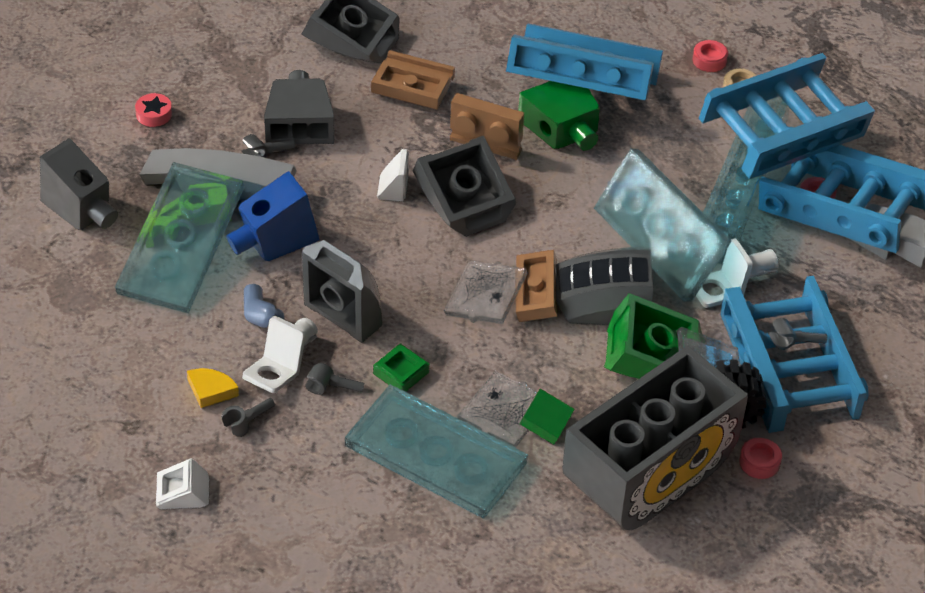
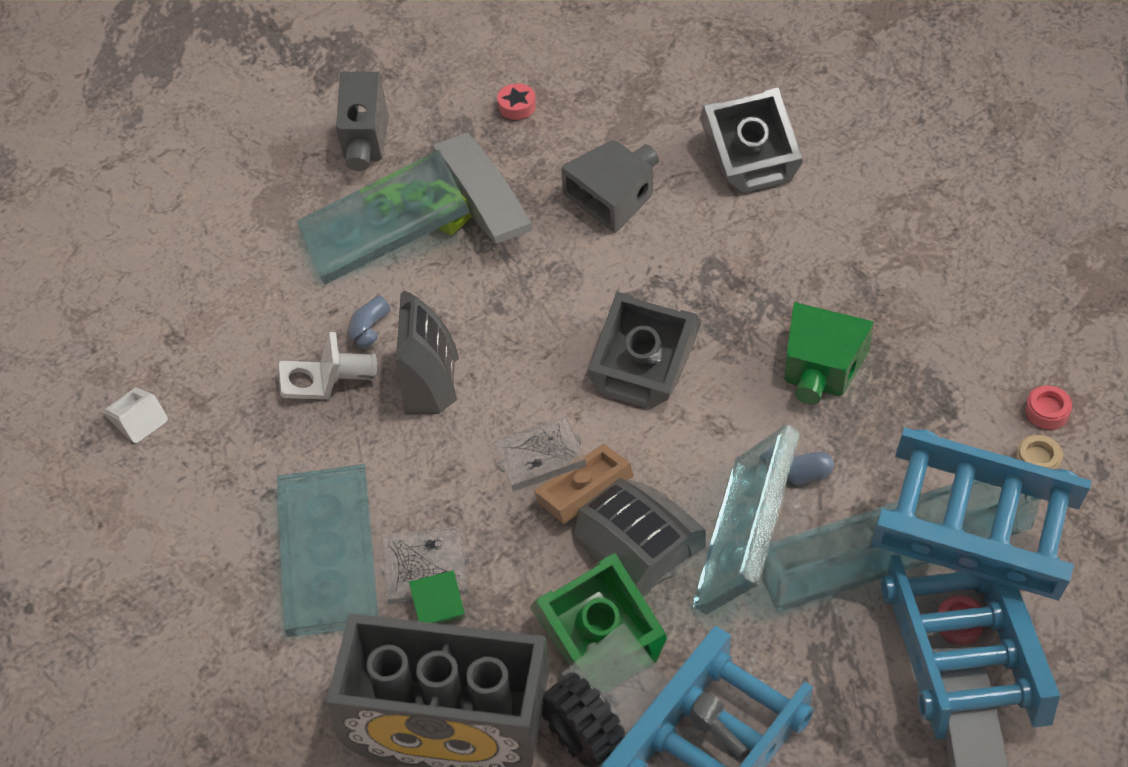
camera: 55 degrees right, 5 degrees up
(211, 386) = (253, 354): yellow tile -> none
(236, 413) = (237, 399): dark grey hand -> none
(258, 148) = (543, 192): dark grey hand -> none
(275, 220) = (459, 259): blue torso -> none
(322, 376) = (329, 415): dark grey hand -> none
(394, 178) = (600, 303): white slope -> none
(401, 368) = (397, 460): green tile -> none
(413, 79) = (741, 225): medium nougat plate -> none
(497, 123) = (732, 310): medium nougat plate -> none
(584, 61) = (875, 333): dark azure fence -> none
(737, 270) = (765, 622): white bracket -> none

